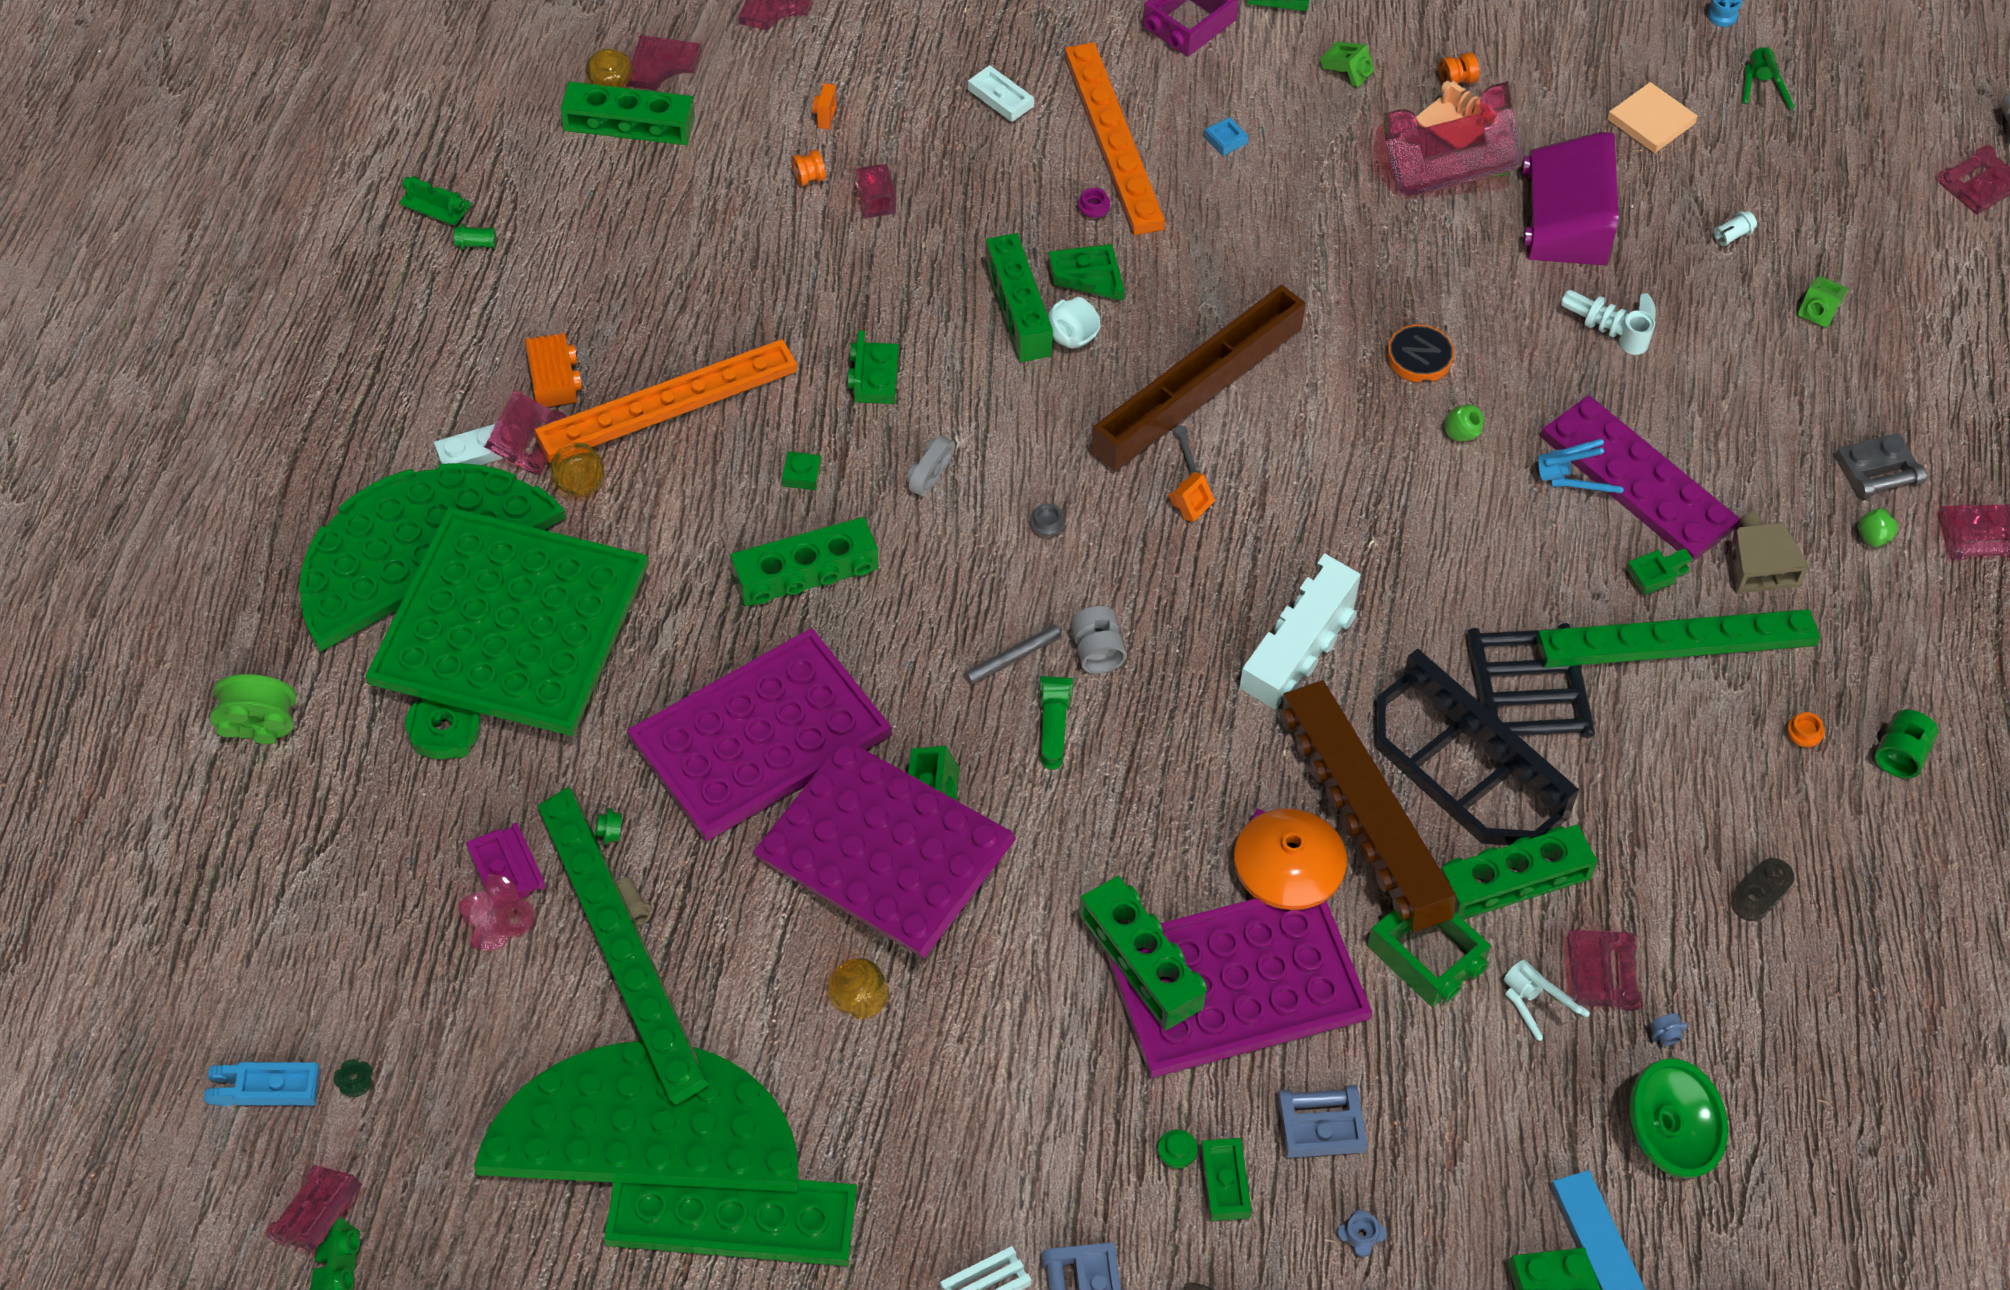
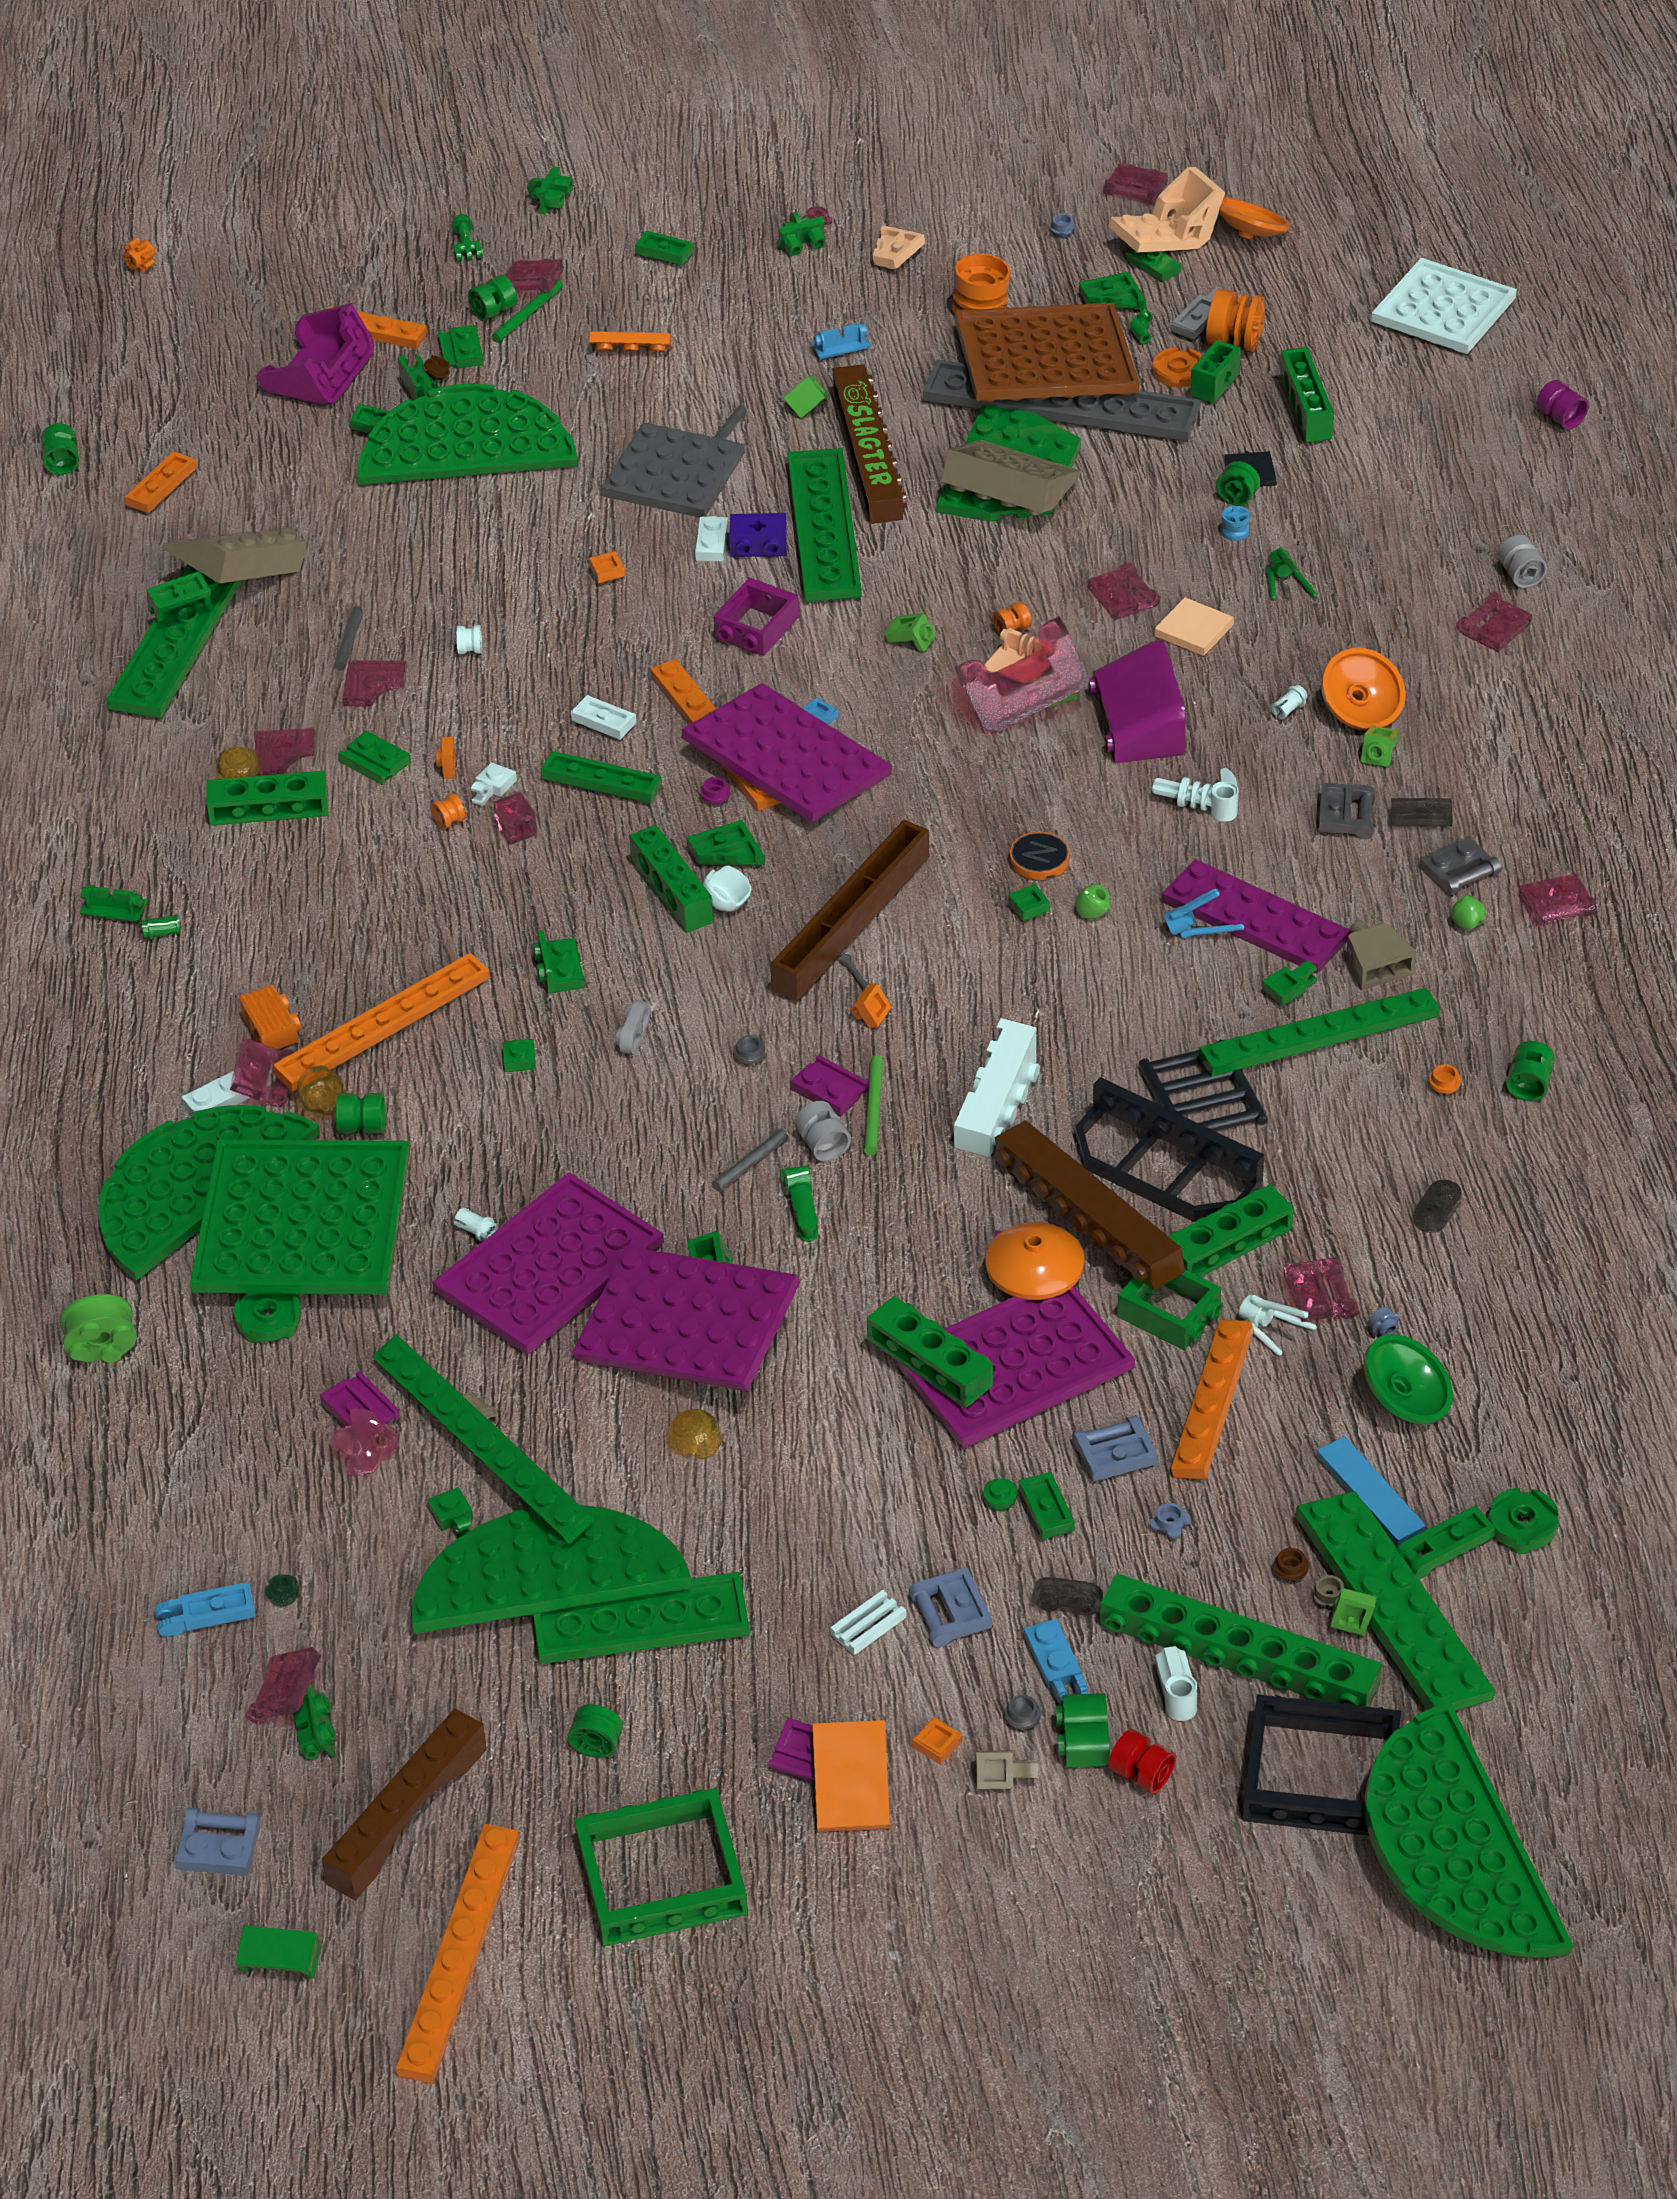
camera: 10 degrees left, 10 degrees down
(566, 1022) = (451, 1510): none -> green plate
(605, 505) = (362, 1113): none -> green wheel
(608, 826) = (440, 1358): green plate -> none
(699, 671) = (475, 1224): none -> light aqua pin
(752, 89) = (374, 757): none -> green plate
(828, 553) = (545, 1123): green brick -> none
(865, 142) = (492, 780): none -> light aqua plate
(979, 161) = (601, 777): none -> green plate
(1122, 582) = (830, 1084): none -> magenta plate
(1164, 617) = (873, 1105): none -> bright green bar
(1180, 175) = (786, 752): none -> magenta plate
(1394, 408) = (1029, 902): none -> green plate
(1448, 1084) = (1212, 1399): none -> orange plate
(1577, 66) = (1117, 597): none -> clear pink plate
(1758, 368) = (1336, 809): none -> flat silver plate
(1835, 231) = (1372, 680): none -> orange dish
(1851, 391) = (1421, 812): none -> clear smoke plate

